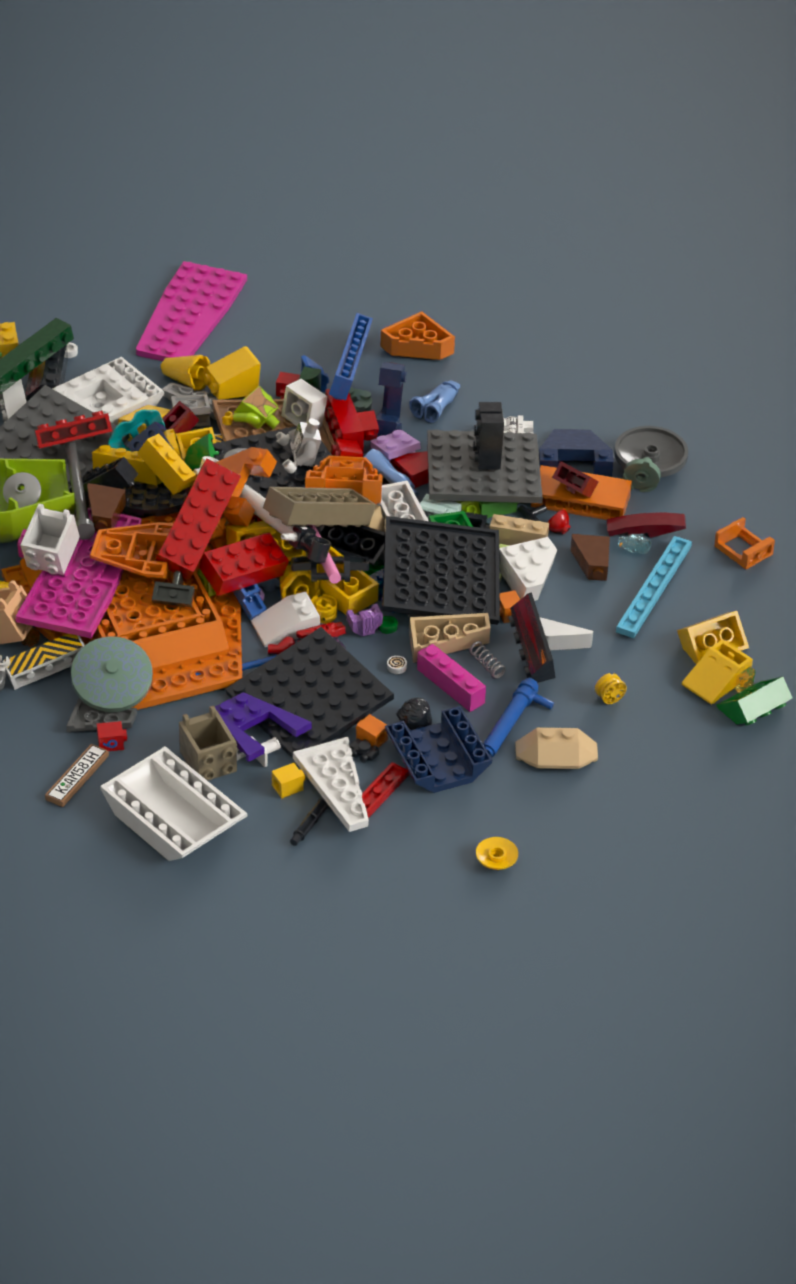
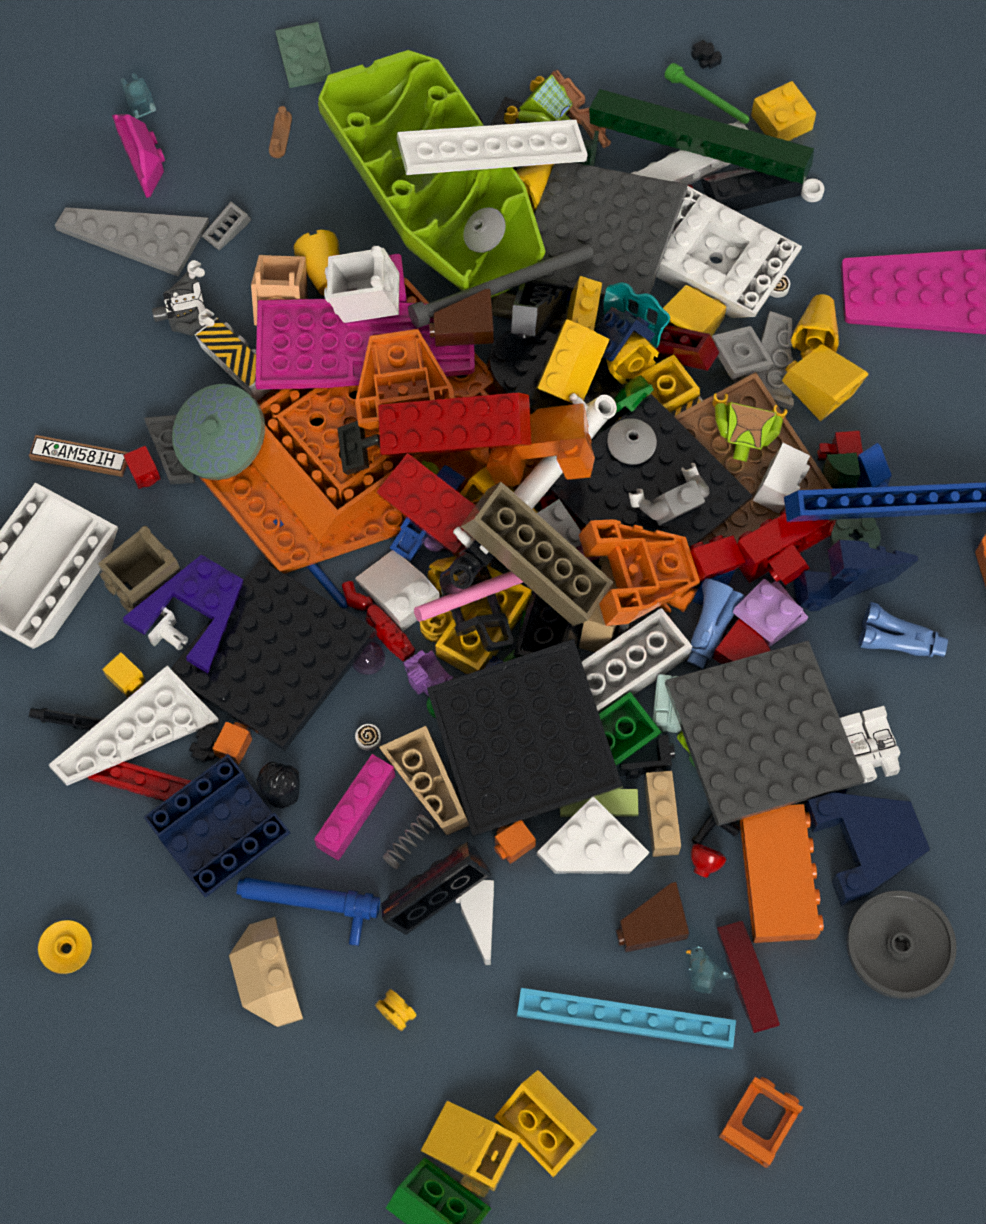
camera: 75 degrees right, 25 degrees up
(73, 430) = (604, 241): red brick -> none
(488, 435) = (783, 713): black piece -> none
(575, 480) = (769, 856): dark red brick -> none
(646, 467) = (840, 944): sand green plate -> none

